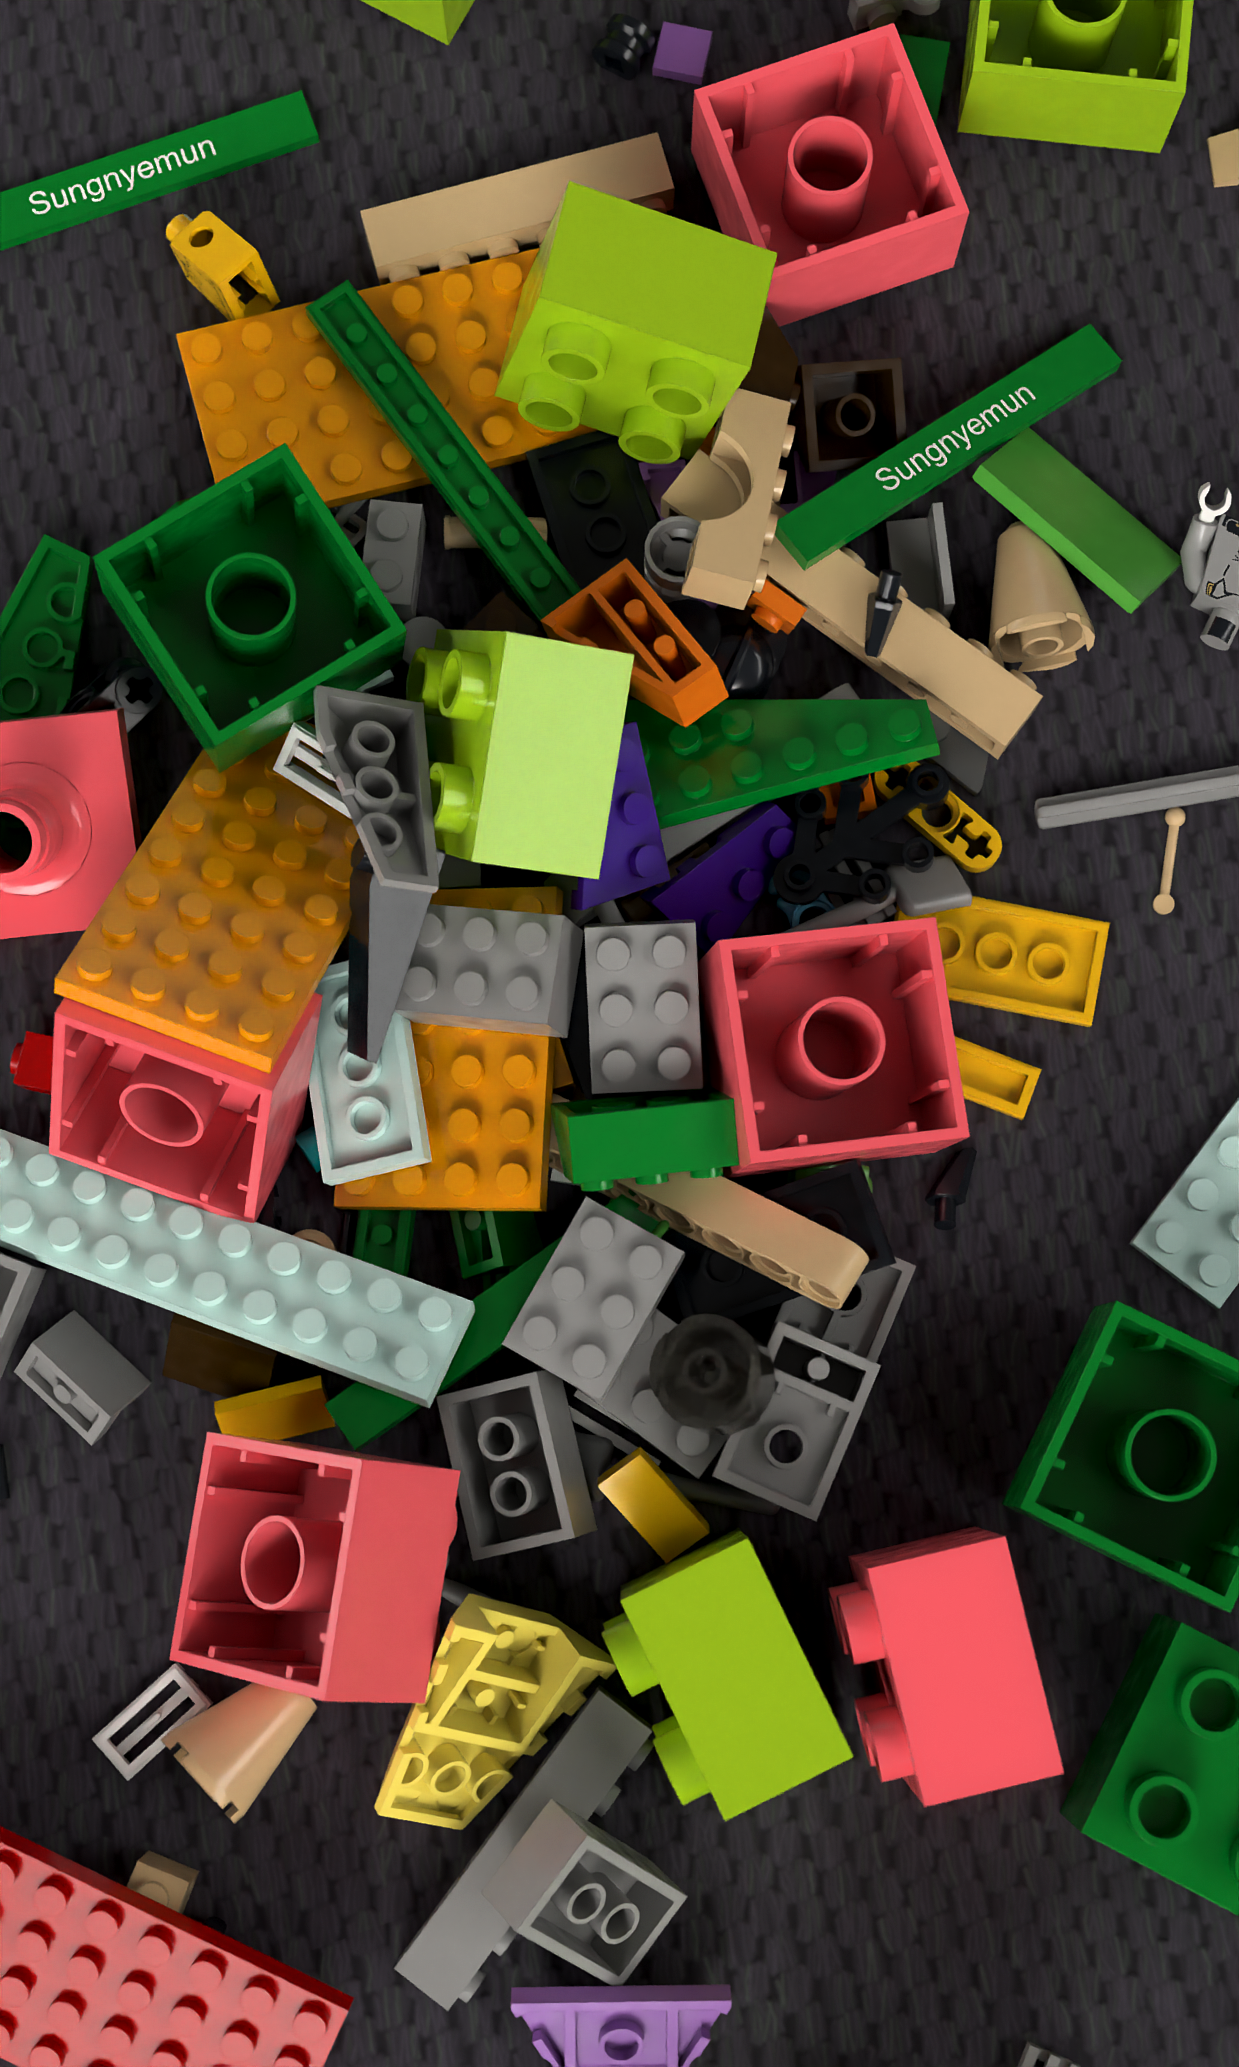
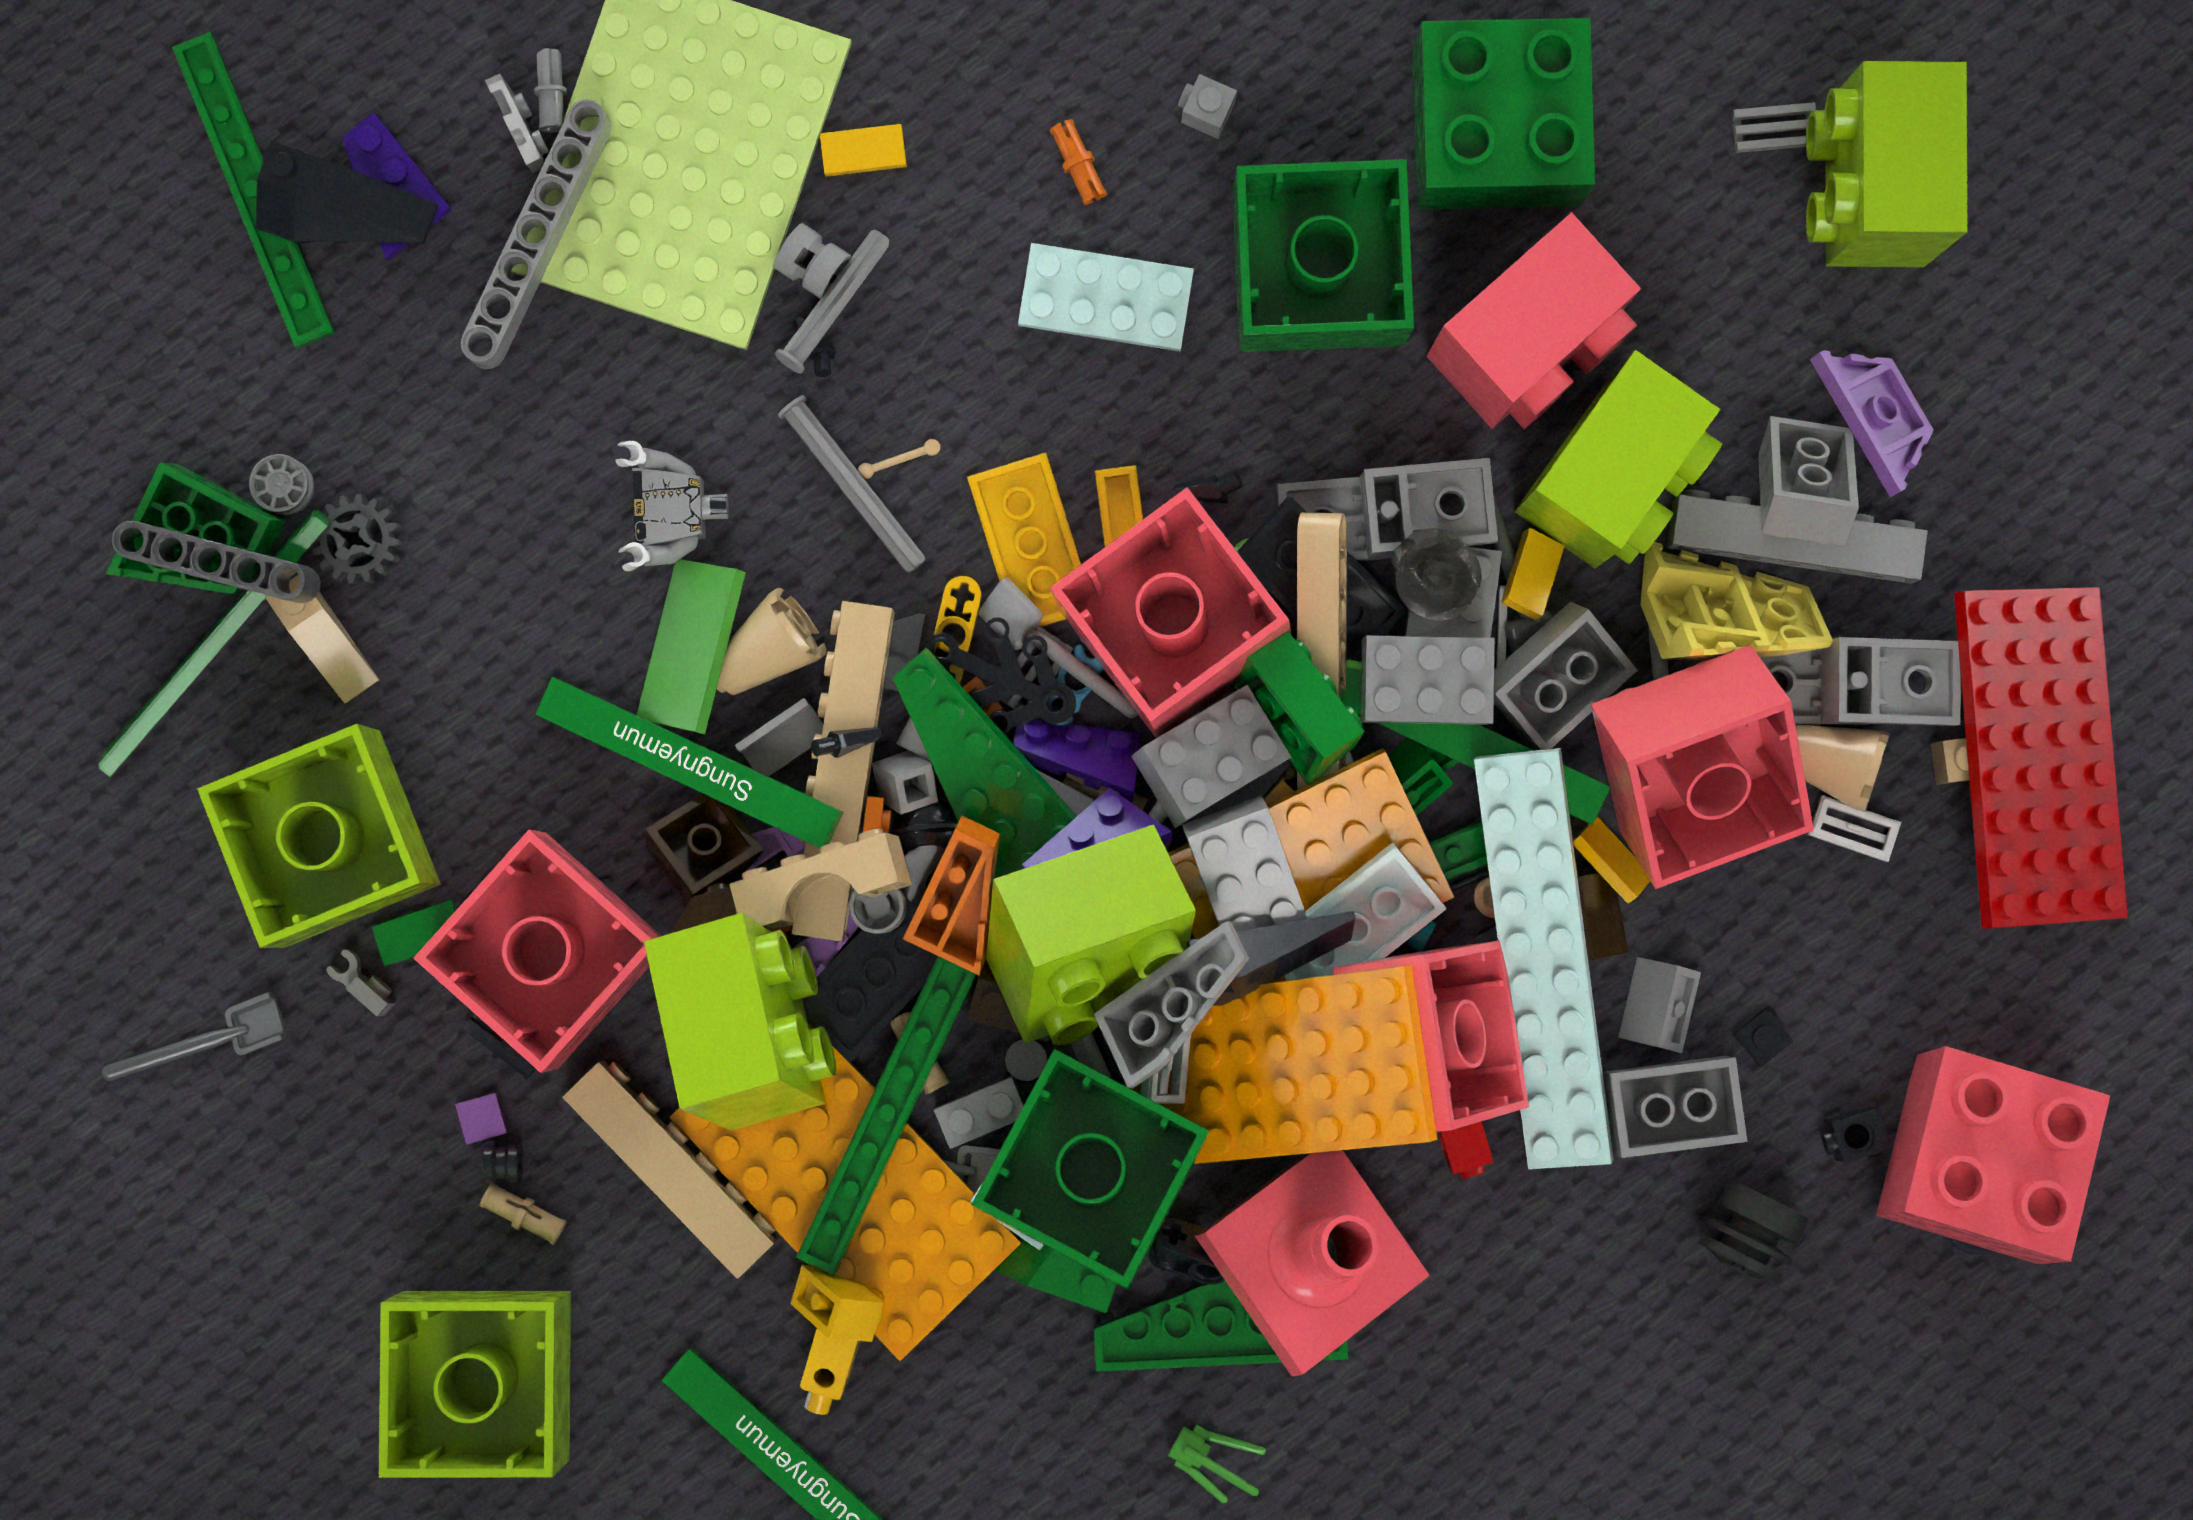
camera: 120 degrees left, 5 degrees up
(268, 291) = (837, 1305): none -> yellow slope
(305, 1831) = (1868, 682): none -> light grey bracket
(587, 25) = (522, 1213): none -> tan pin
(800, 666) = (905, 782): none -> light grey brick

